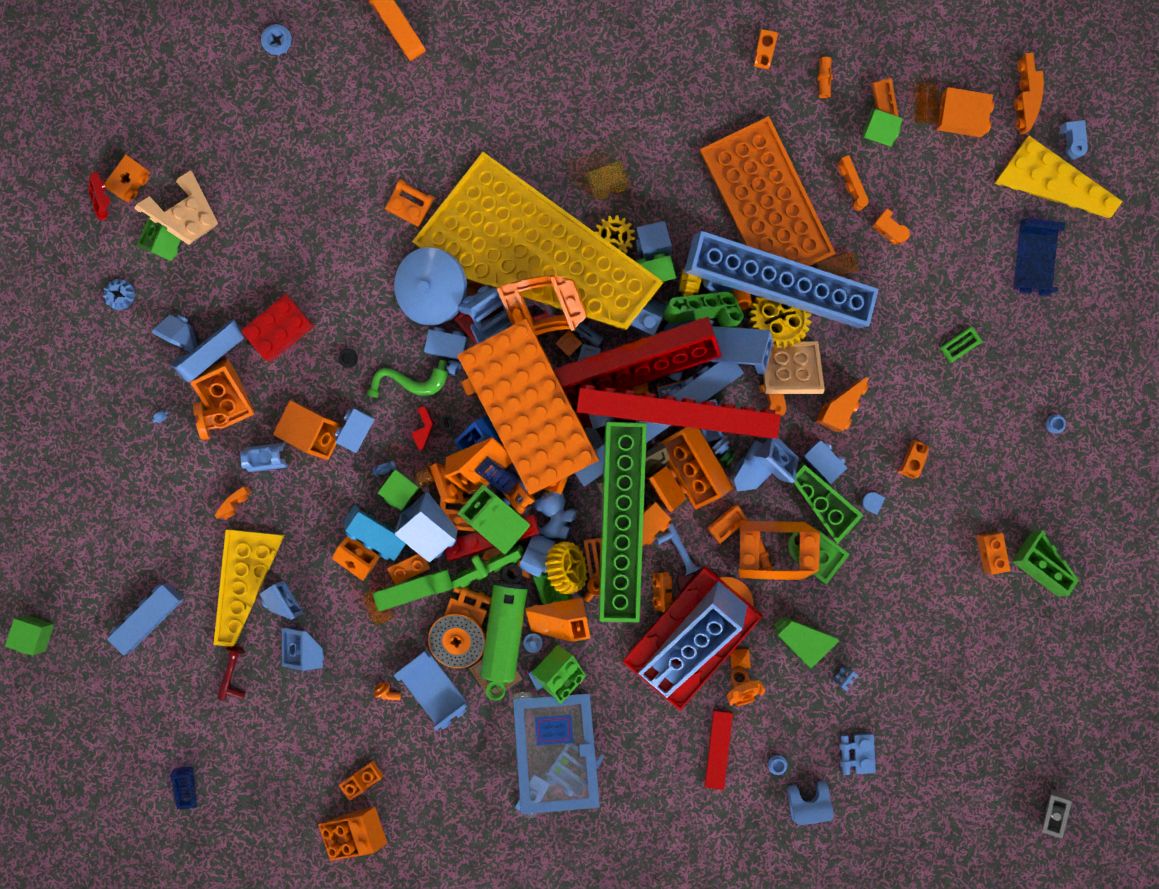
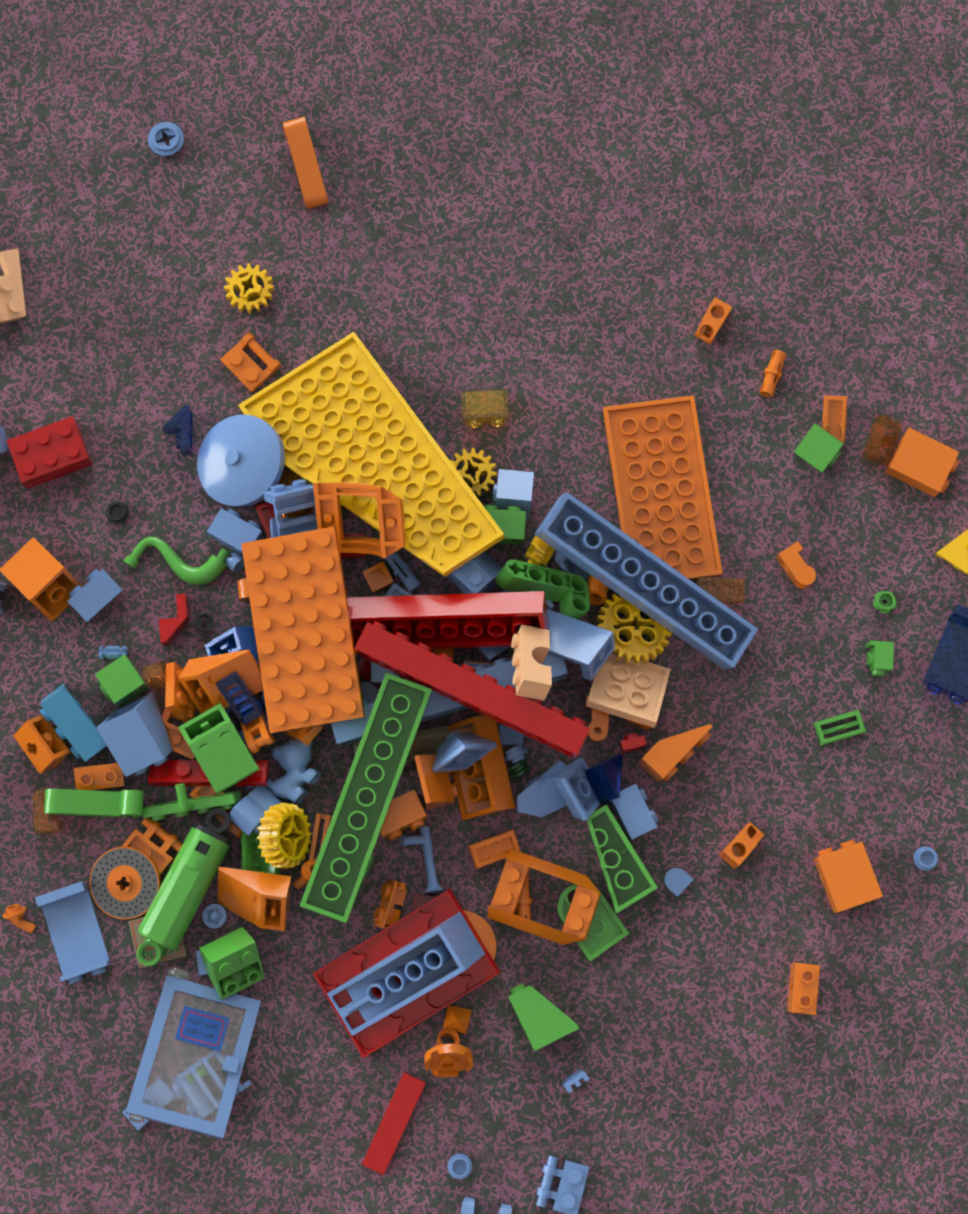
camera: 20 degrees right, 10 degrees down
(374, 271) = (182, 424): none -> clear blue slope
(376, 141) = (244, 279): none -> yellow gear
(680, 460) = (461, 751): none -> medium blue slope
(721, 389) = (531, 648): none -> light nougat arch
(796, 443) = (606, 778): none -> clear blue slope
(808, 410) = (632, 743): none -> red plate
(853, 183) = (768, 501): orange plate -> none
(971, 234) = (890, 599): none -> bright green plate
(977, 280) = (880, 657): none -> bright green brick
(1001, 457) = (847, 876): none -> orange brick
(1045, 565) = (861, 1024): bright green wedge -> none

